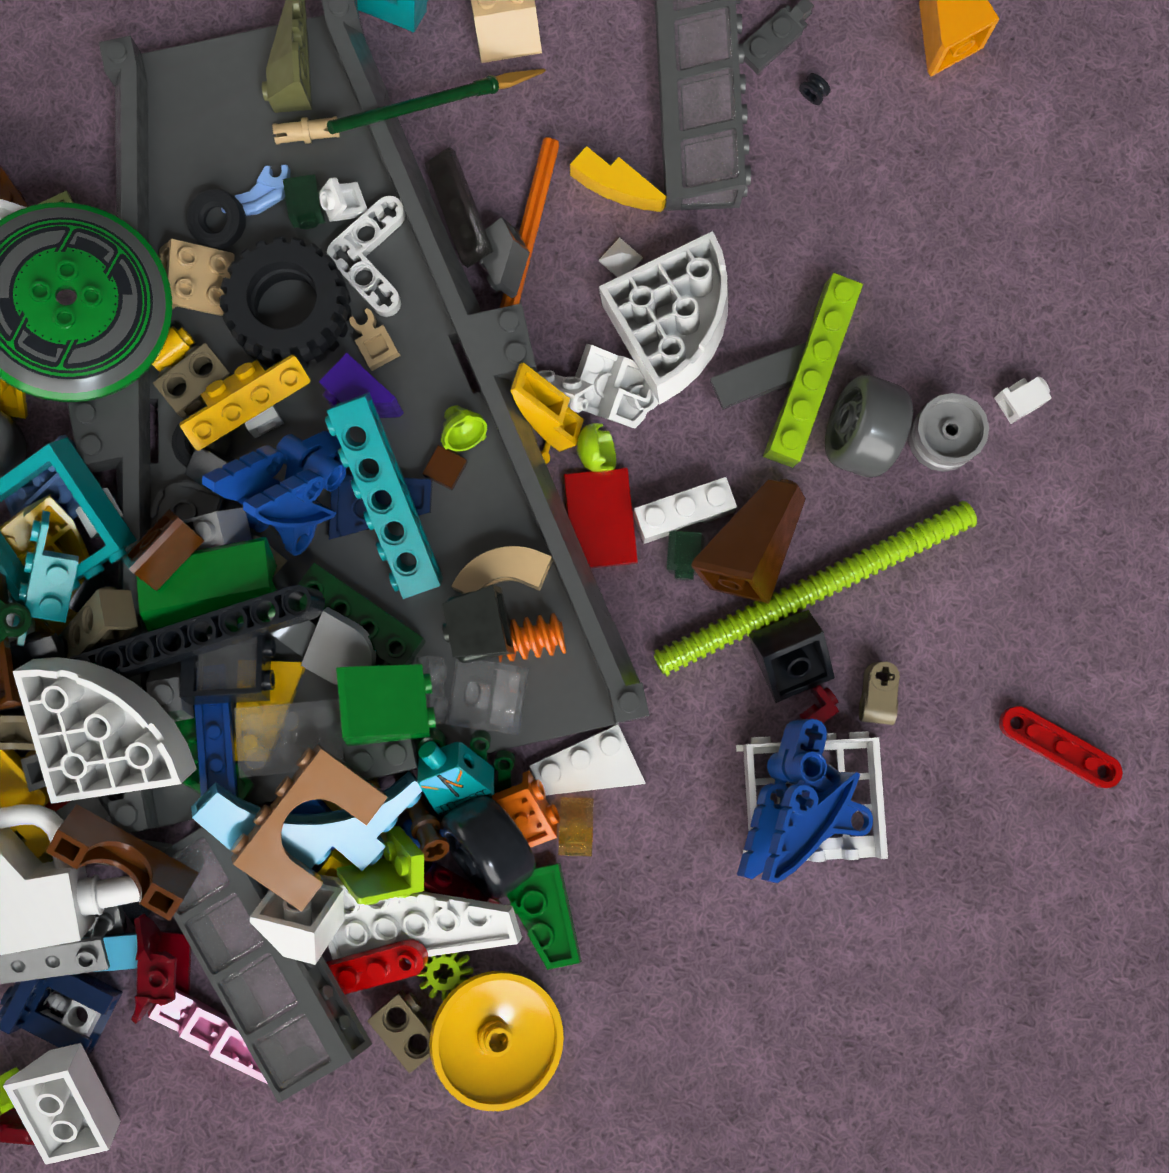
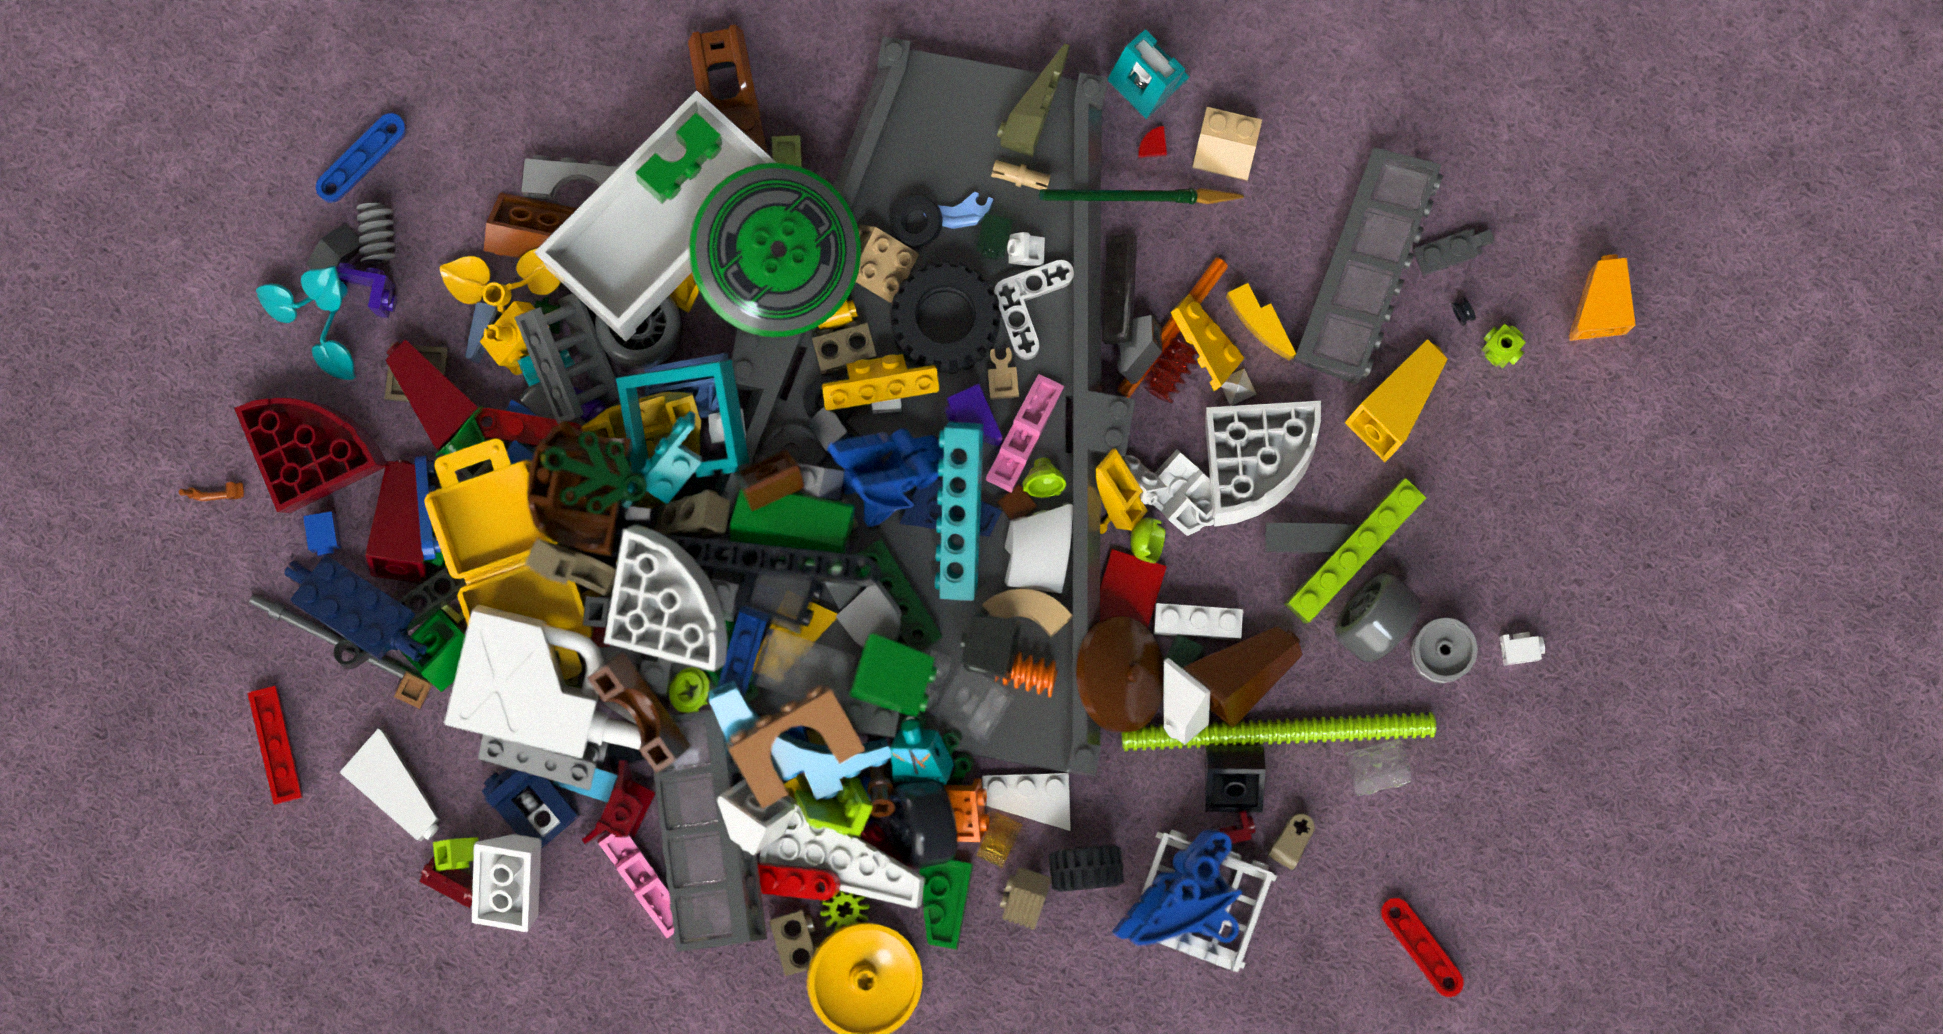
camera: 25 degrees right, 0 degrees up
(167, 809) = (681, 686): none -> lime gear
(421, 390) = (1024, 433): none -> bright pink slope
(432, 54) = (1153, 144): none -> red tile
(488, 503) = (1039, 549): none -> white slope
(545, 267) = (1171, 370): none -> clear red piece
(579, 225) = (1212, 345): none -> yellow wing
(628, 598) = (1120, 674): none -> reddish brown dish
(629, 876) = (1025, 897): none -> dark tan brick
(681, 818) = (1086, 868): none -> black tyre
(707, 599) = (1184, 703): none -> white slope
(791, 205) = (1393, 408): none -> yellow slope
(870, 104) = (1496, 352): none -> lime brick
(933, 580) = (1378, 767): none -> clear bracket

